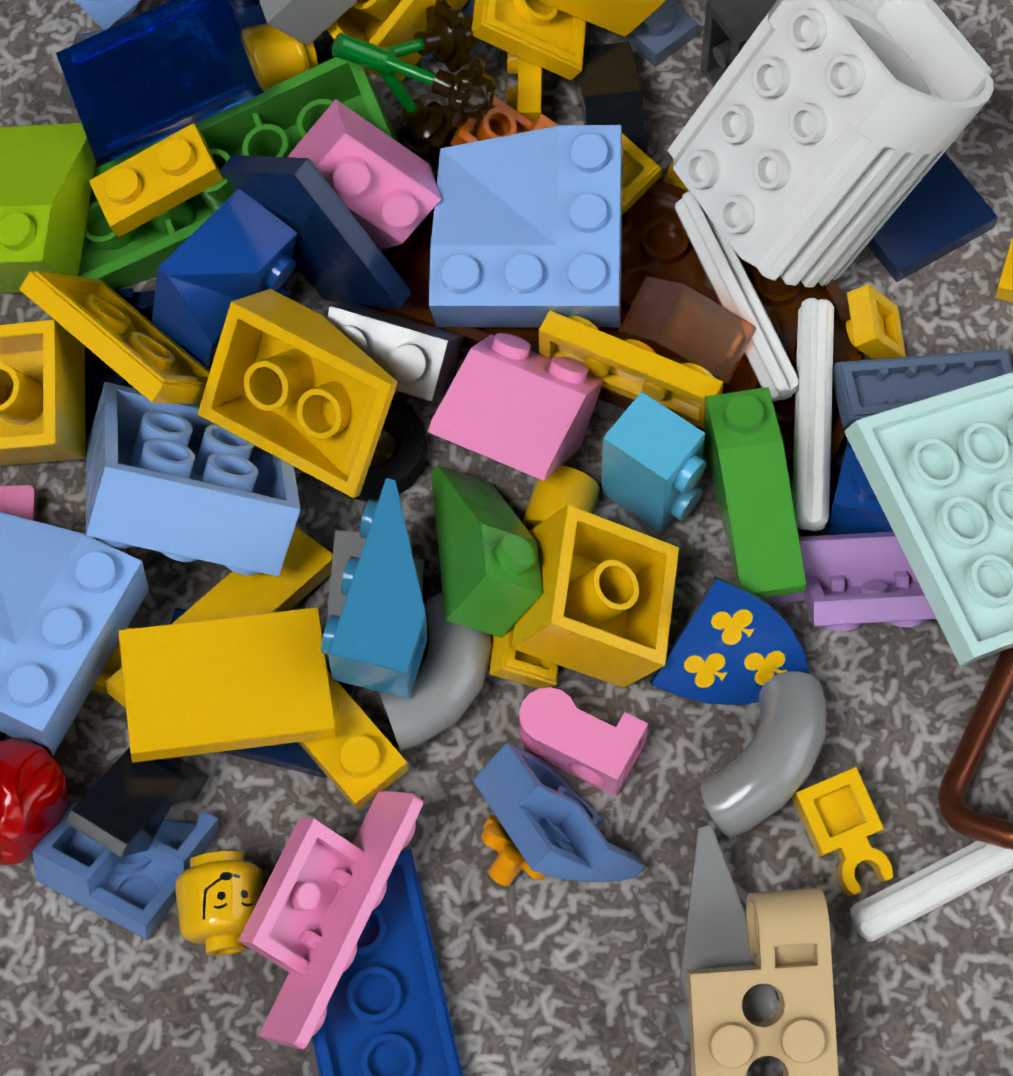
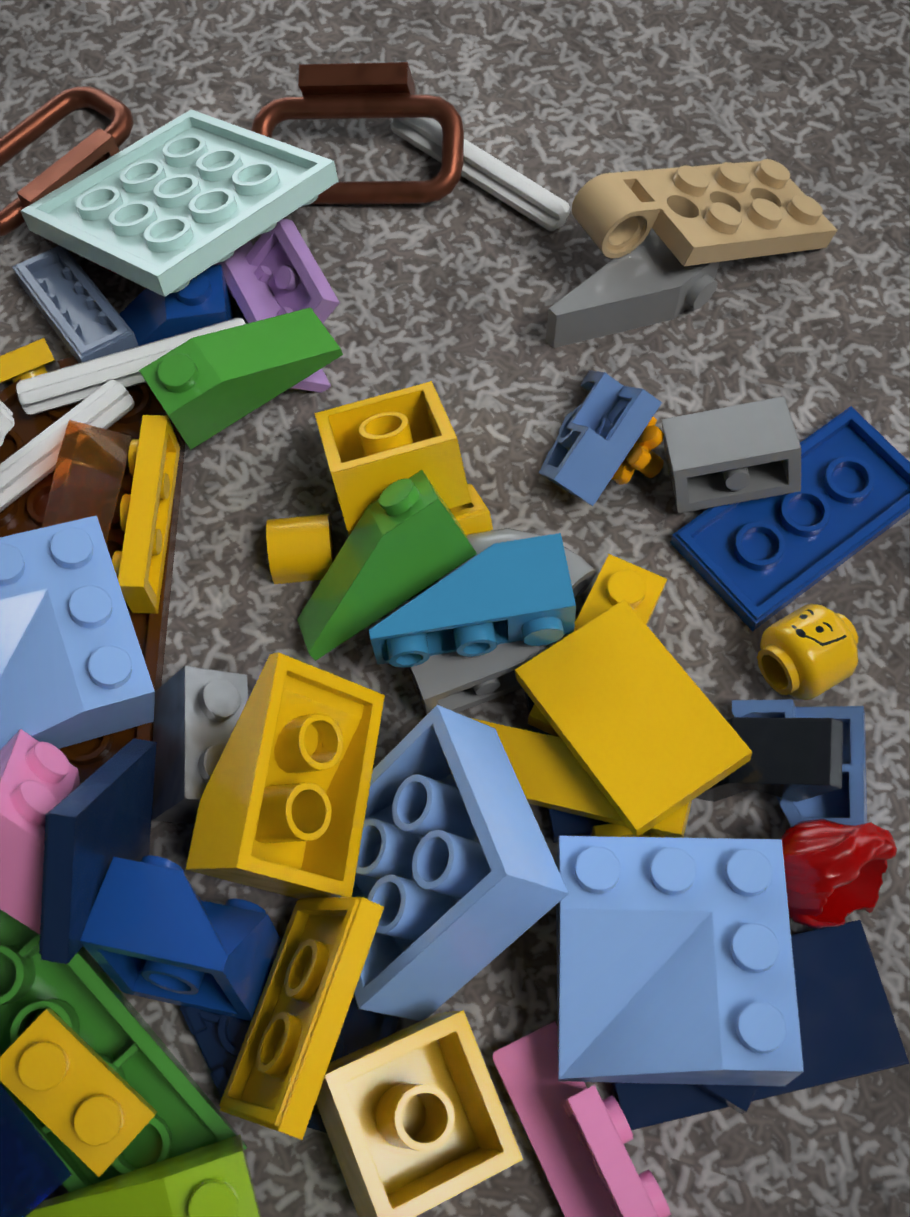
camera: 115 degrees left, 0 degrees up
(320, 906) = (772, 552): bright pink bracket -> none
(460, 933) = (732, 454): none -> light grey brick
(518, 405) = (225, 594): bright pink slope -> none
(578, 741) = (515, 456): bright pink leg -> none
(653, 463) = (238, 460): medium azure brick -> none
(729, 648) = (380, 356): blue shield -> none
(775, 759) = (465, 292): light grey cylinder -> none
(840, 818) = (491, 251): yellow plate -> none

